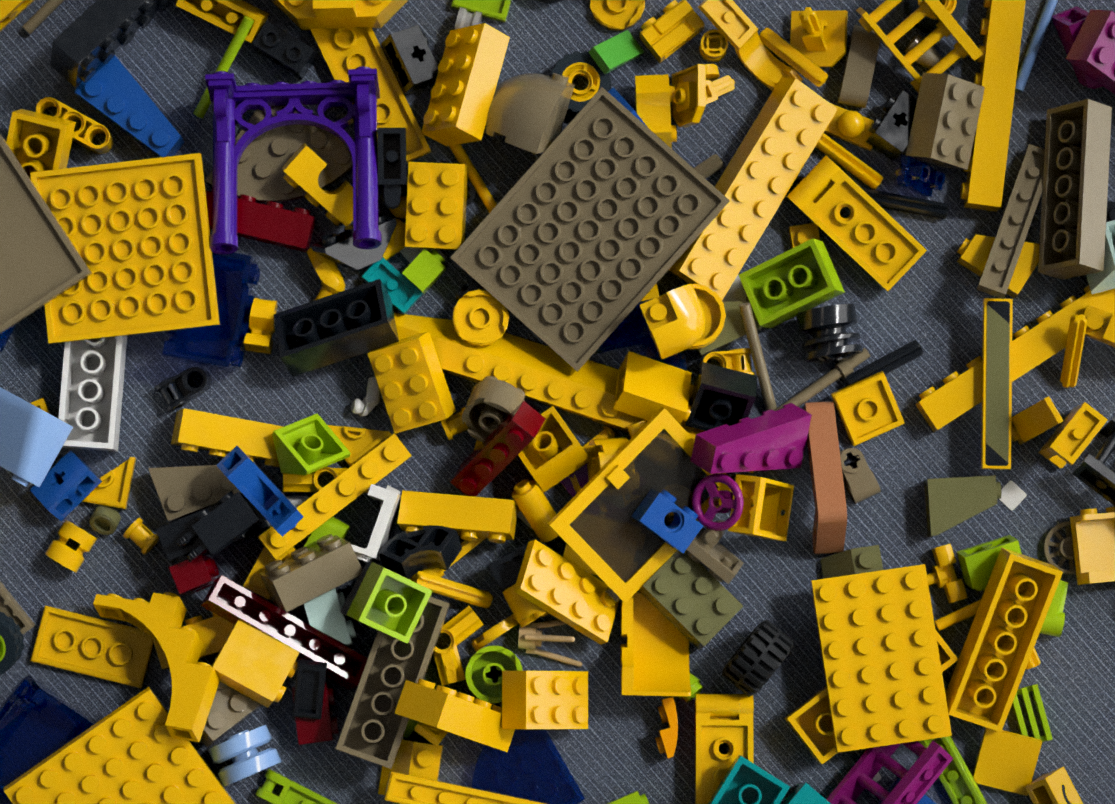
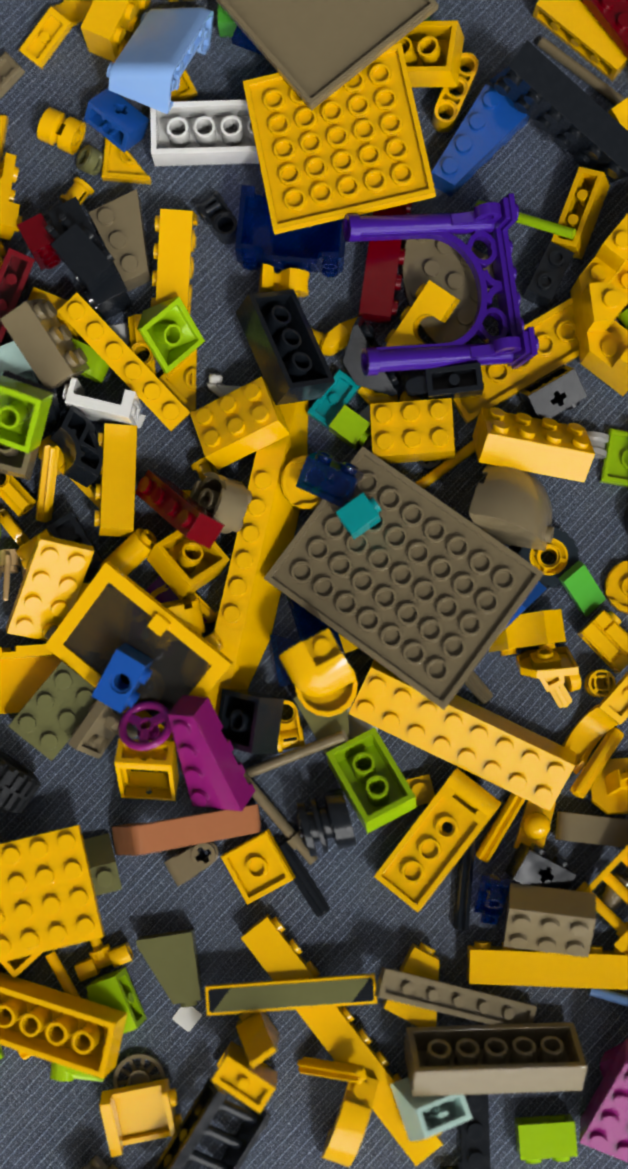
camera: 90 degrees right, 0 degrees up
(260, 491) = (117, 286): blue arch -> none
(482, 292) = (329, 478): none -> clear blue bracket
(524, 265) = (359, 515): none -> teal brick
(649, 385) = (255, 654): yellow brick -> none

